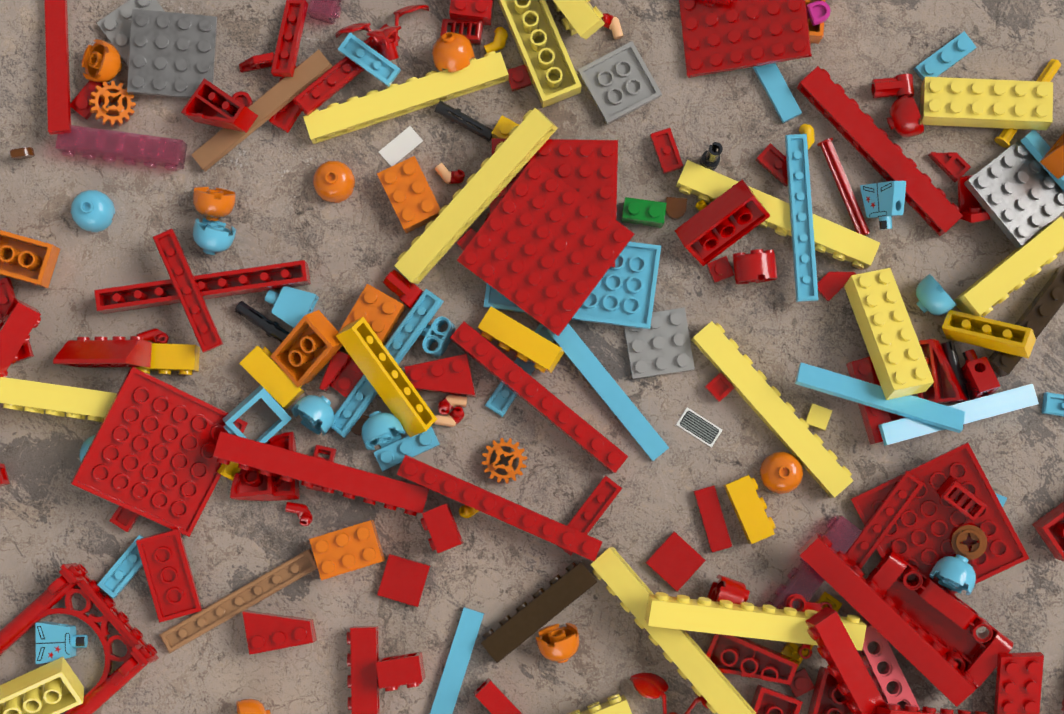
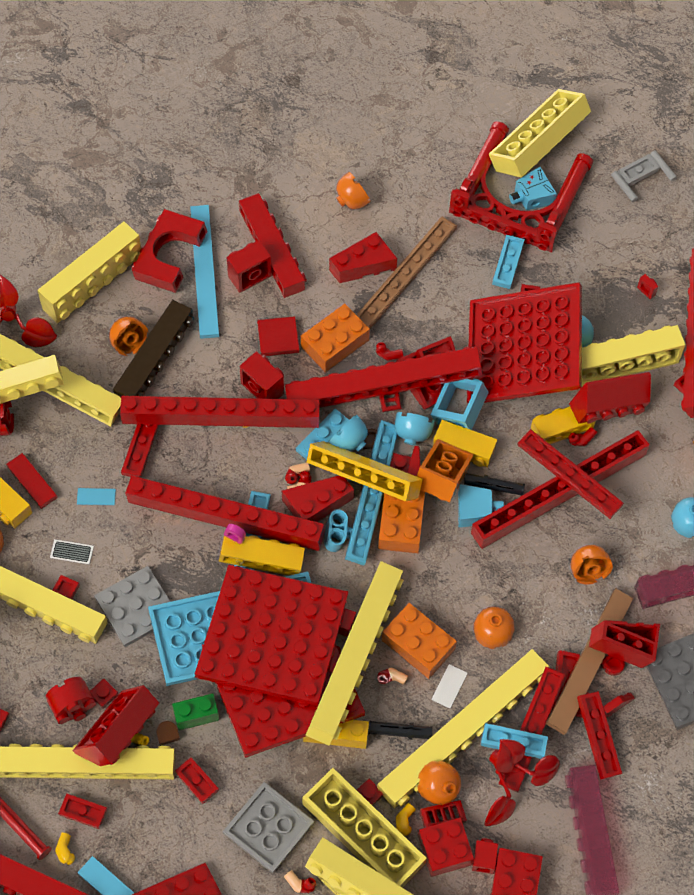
camera: 155 degrees right, 20 degrees down
(169, 575) = (470, 265): red plate -> none
(213, 236) = (574, 534): medium azure cylinder -> none
(407, 291) = (380, 553): red piece -> none
(499, 451) = (236, 462): orange gear -> none
(540, 359) = (235, 533): none -> dark pink tile
(610, 392) = (161, 545): medium azure tile -> none
(655, 476) = (95, 496): none -> medium azure sticker
(675, 561) = (51, 435): red tile -> none
(711, 156) = (150, 783): black pin -> none
(801, 218) = (42, 763): medium azure tile -> none

